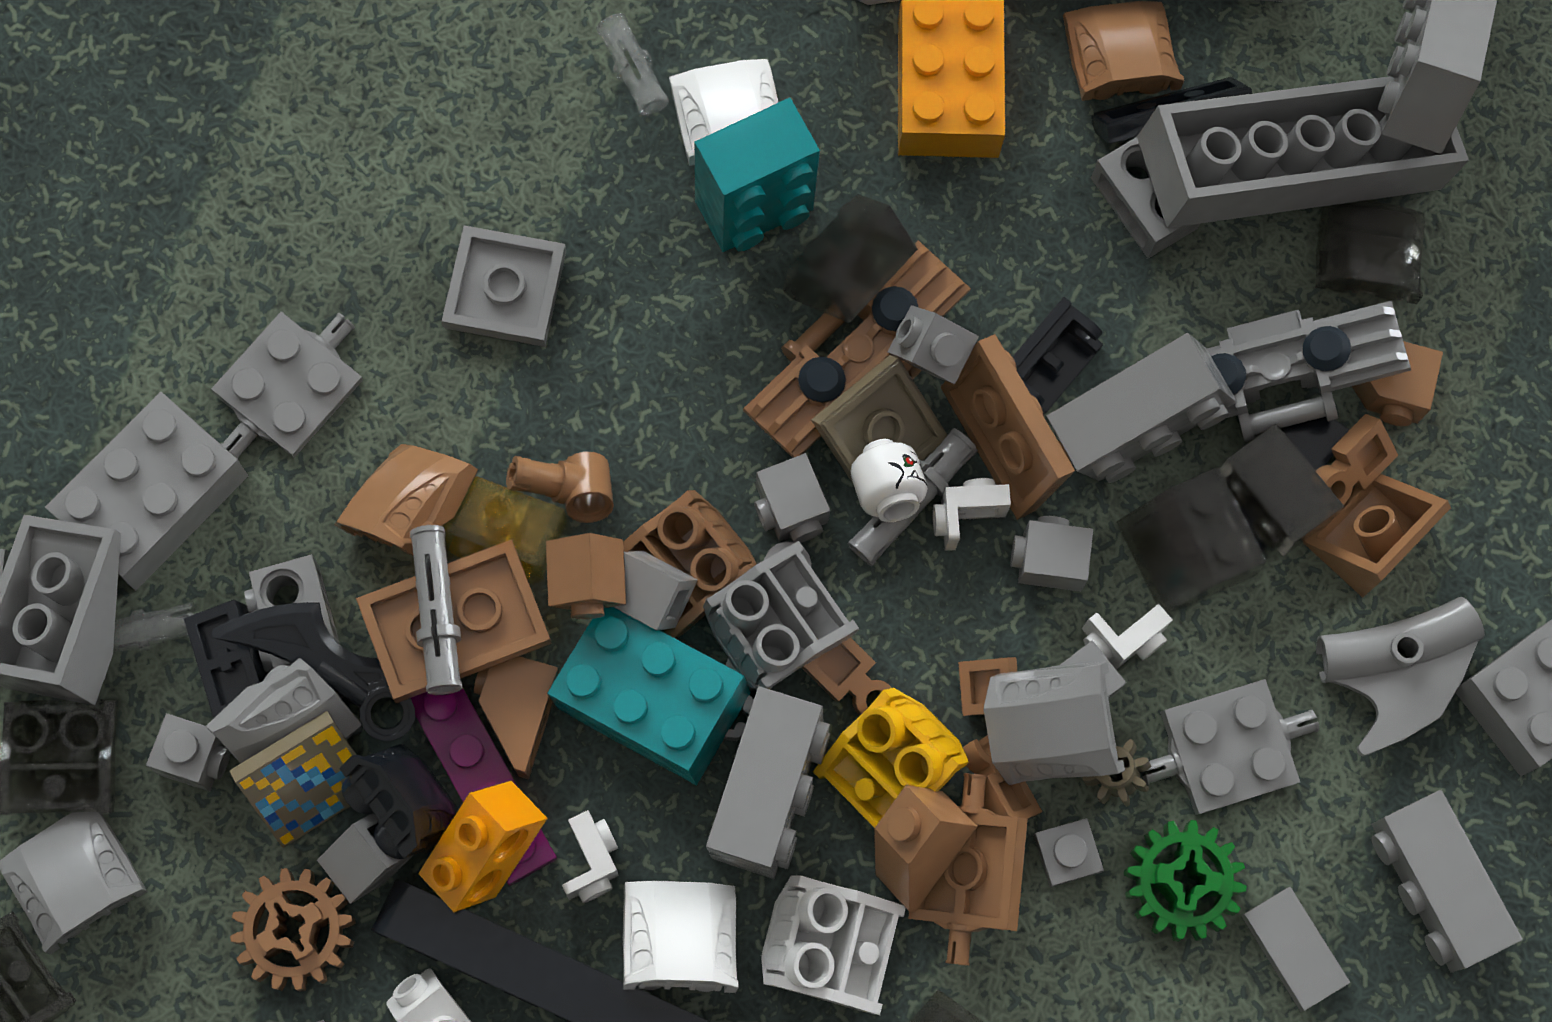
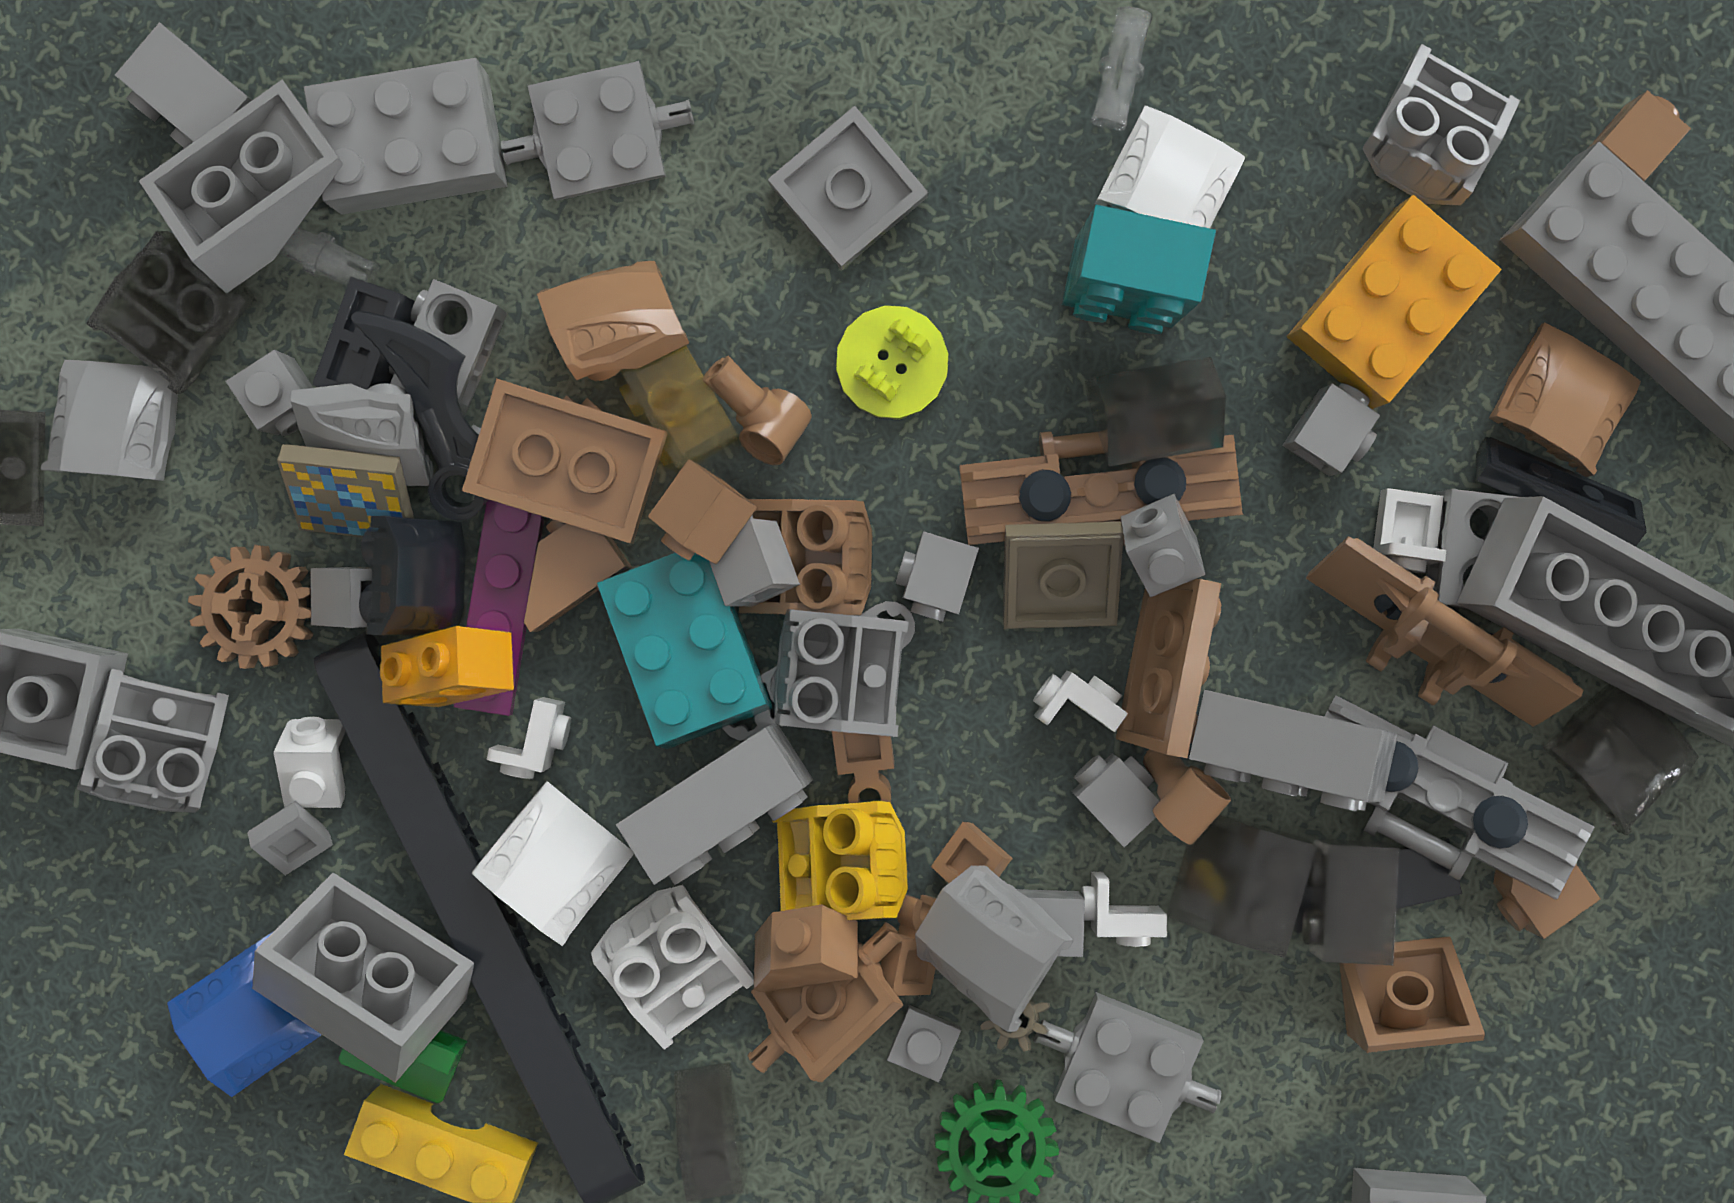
camera: 50 degrees right, 15 degrees up
(437, 631) = (550, 444): light grey pin -> none
(634, 405) = (875, 382): none -> neon yellow plate
(889, 480) = (1027, 630): white head -> none
(938, 471) = (1043, 652): light grey pin -> none
(984, 187) = (1334, 429): none -> light grey brick
(1057, 353) = (1266, 628): black hinge -> none
(1094, 214) = (1409, 529): none -> white bracket
(1098, 505) = (1186, 796): none -> medium nougat pin
(1177, 263) = (1451, 644): none -> medium nougat piece
(1359, 458) = (1445, 925): medium nougat plate -> none
(1404, 690) = (1320, 1148): light grey pin -> none

